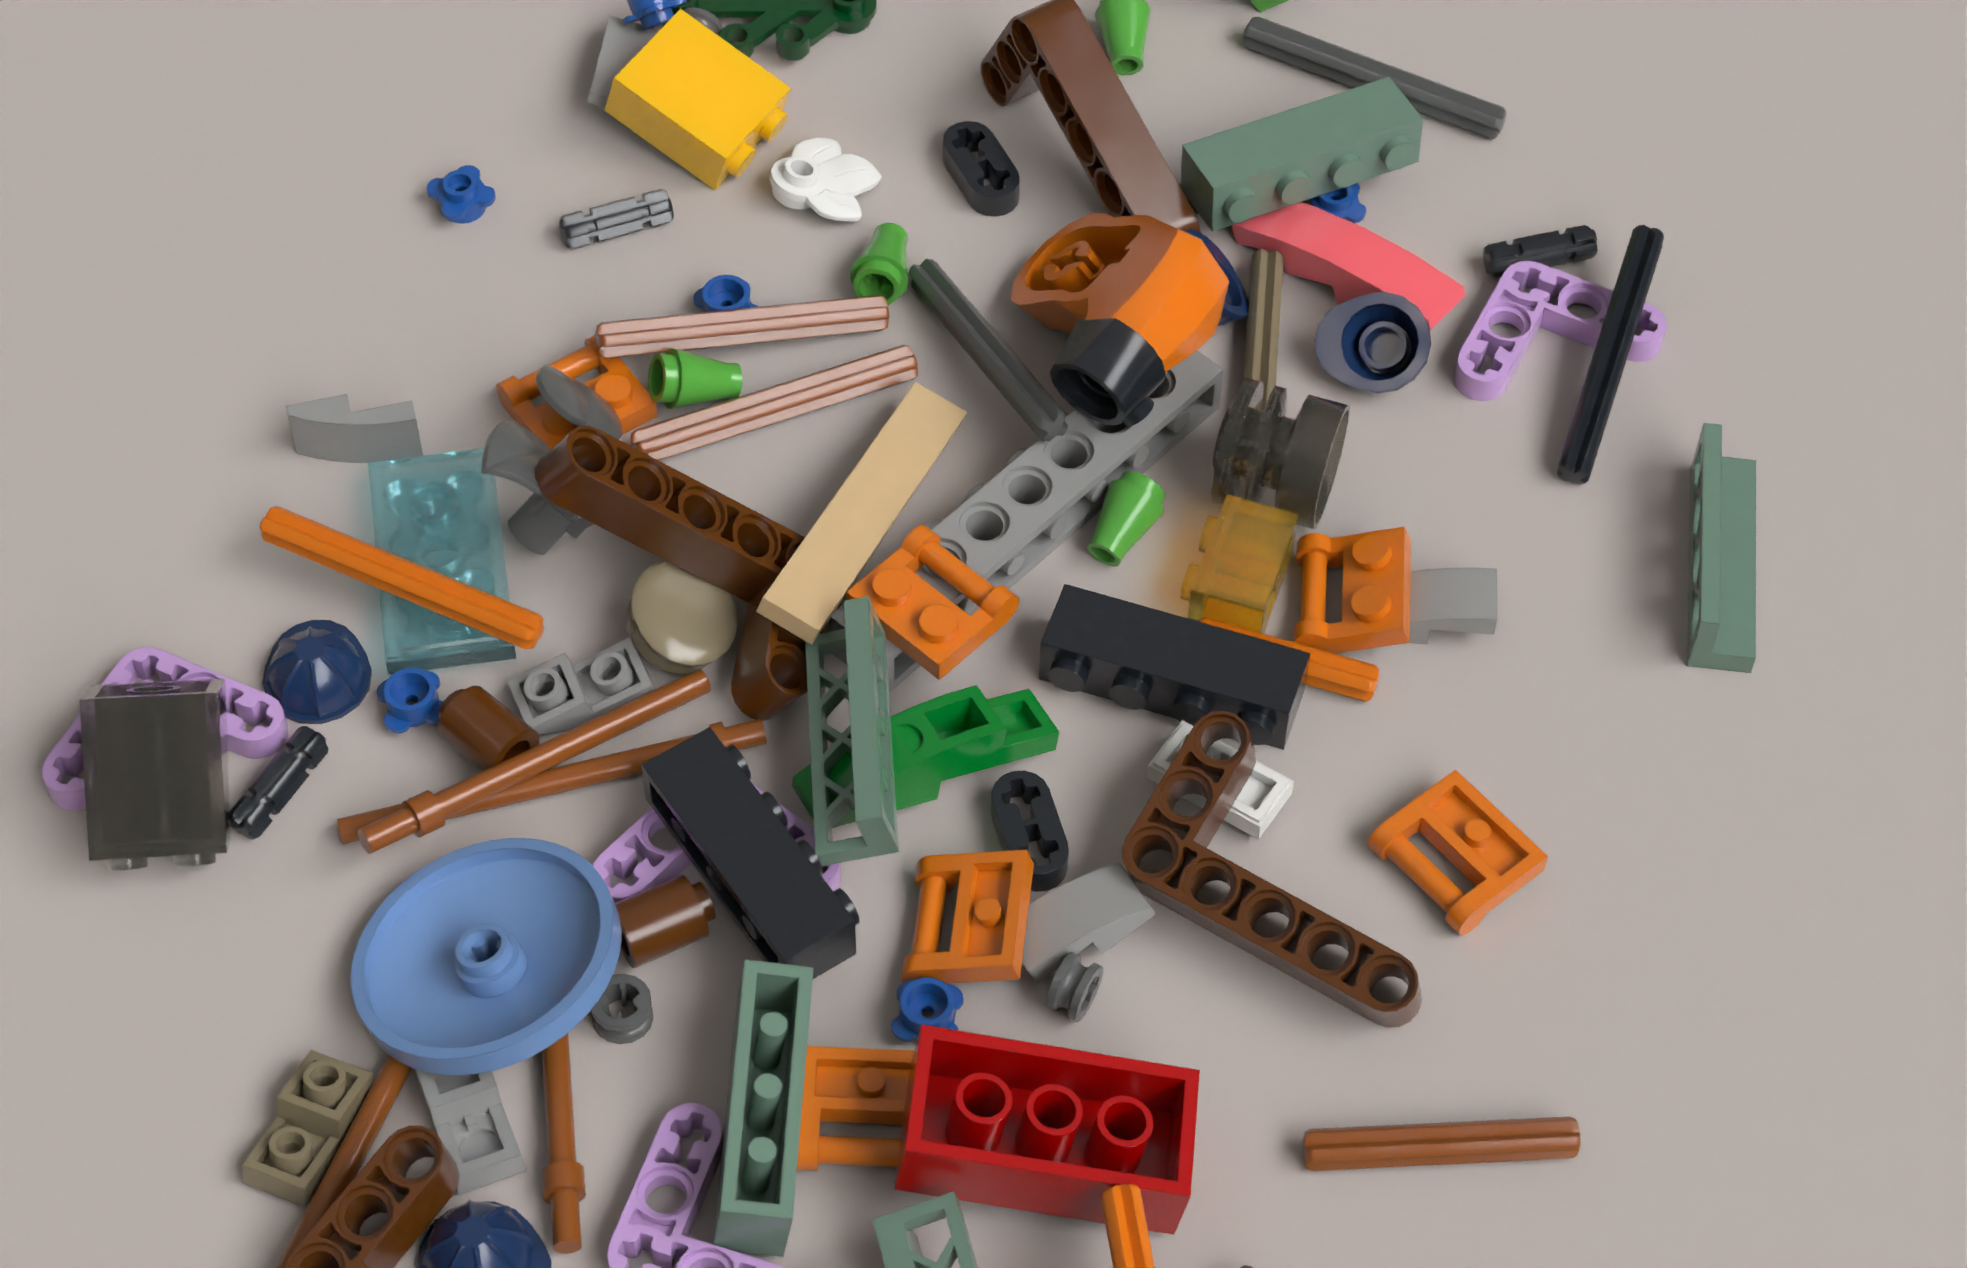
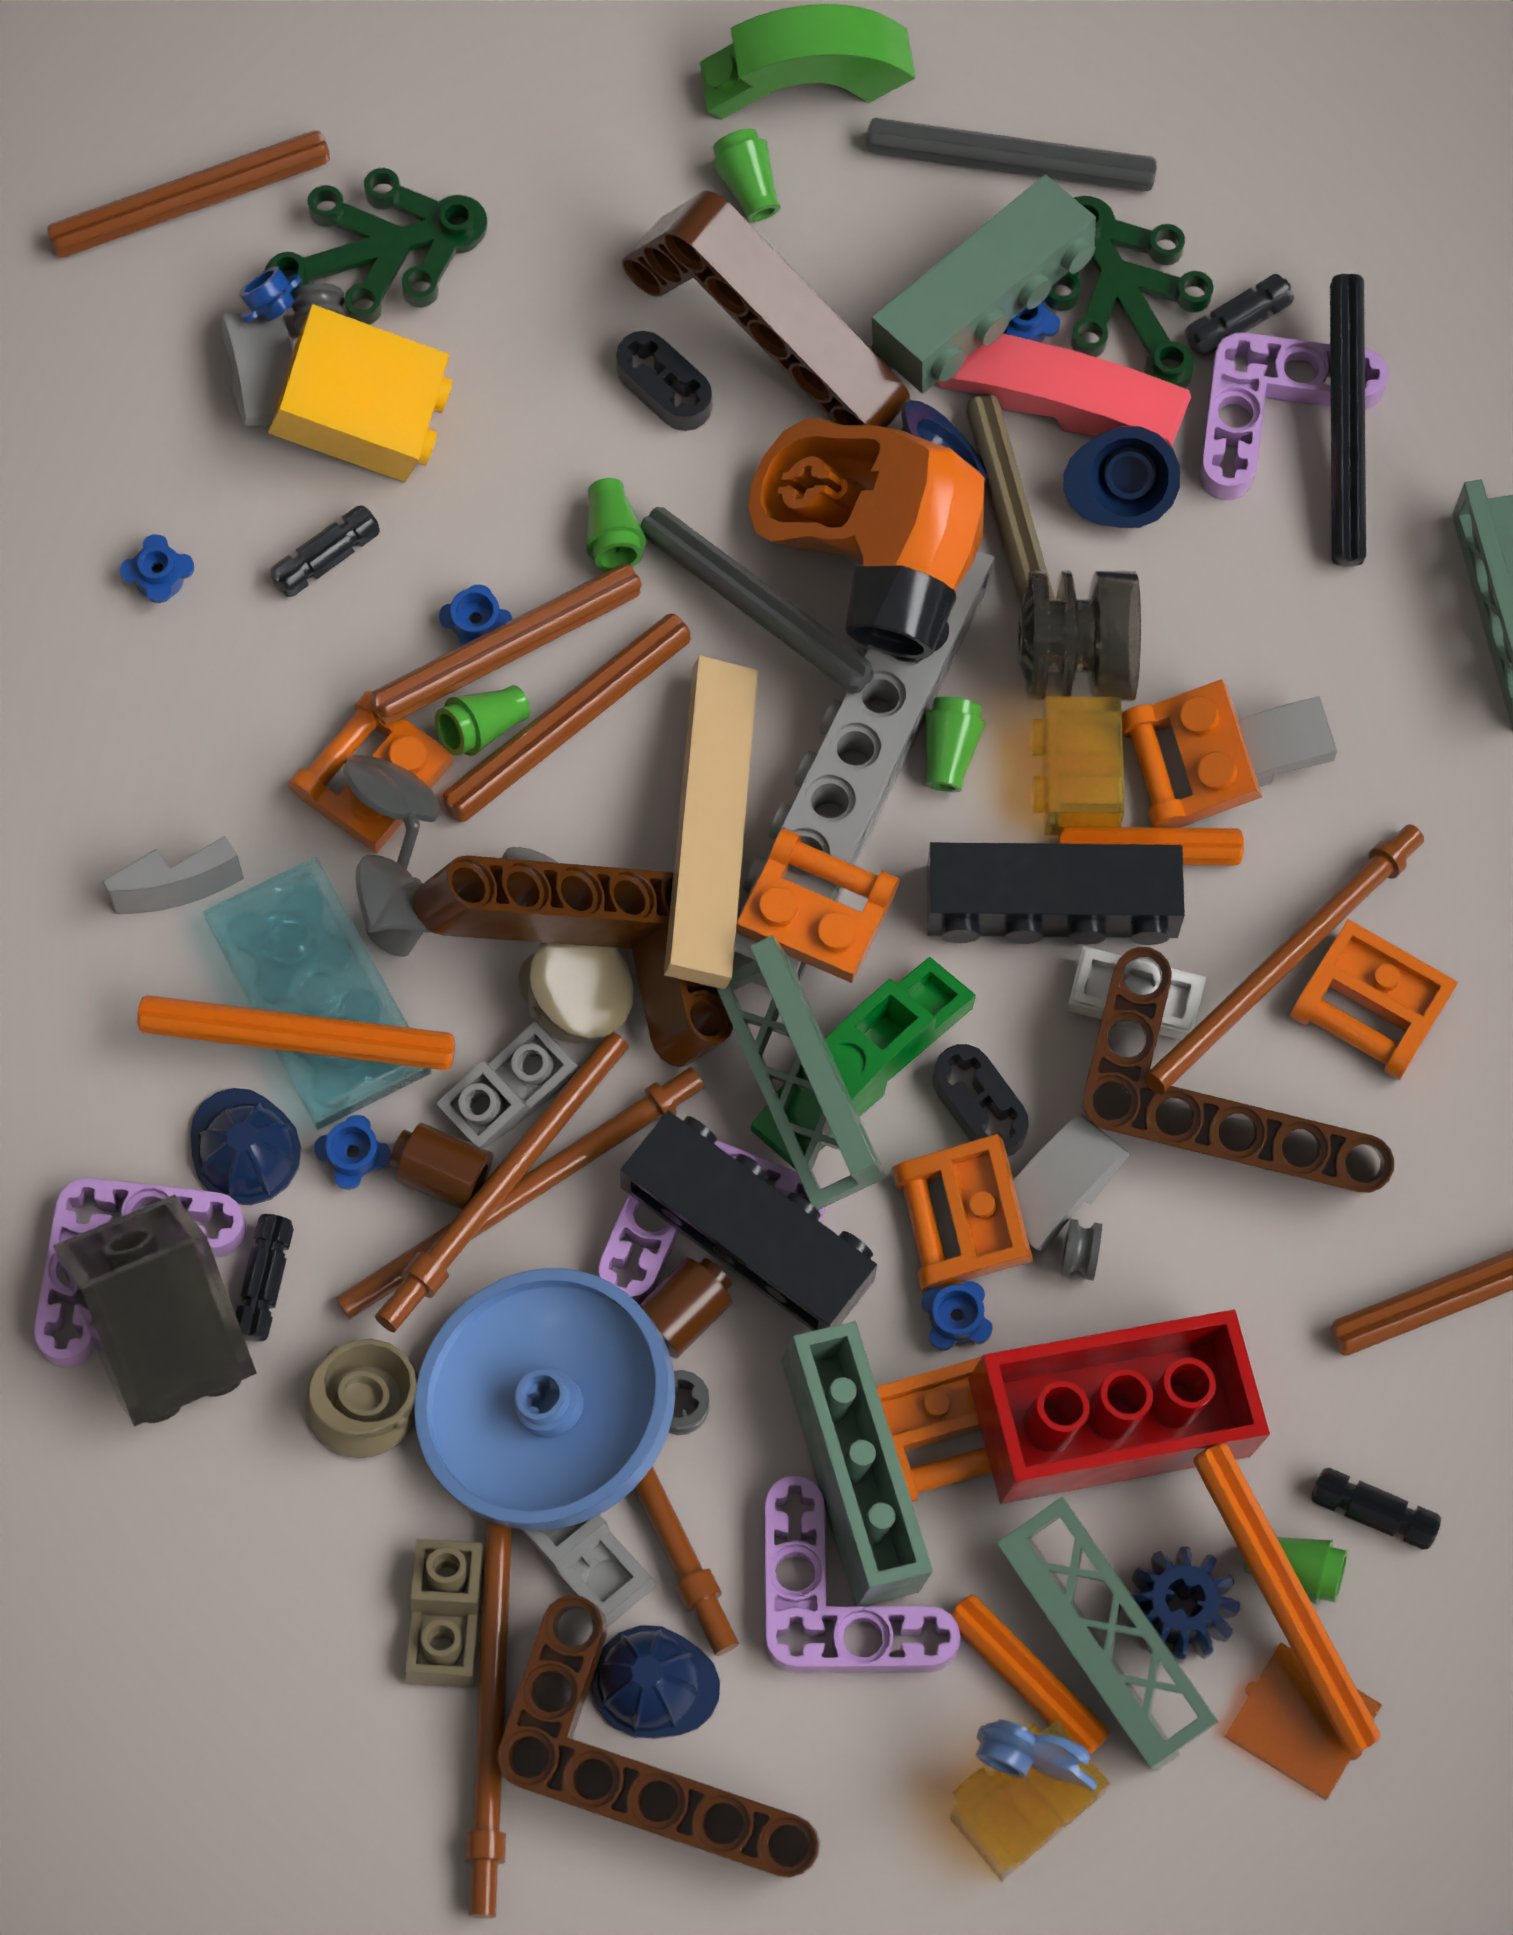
camera: 20 degrees left, 15 degrees up
(317, 909) = (362, 1398): none -> dark tan piece
(823, 179) = (517, 439): white plate -> none
(1441, 199) = (1125, 283): none -> dark green plant
(1514, 735) = (1384, 862): none -> dark orange bar

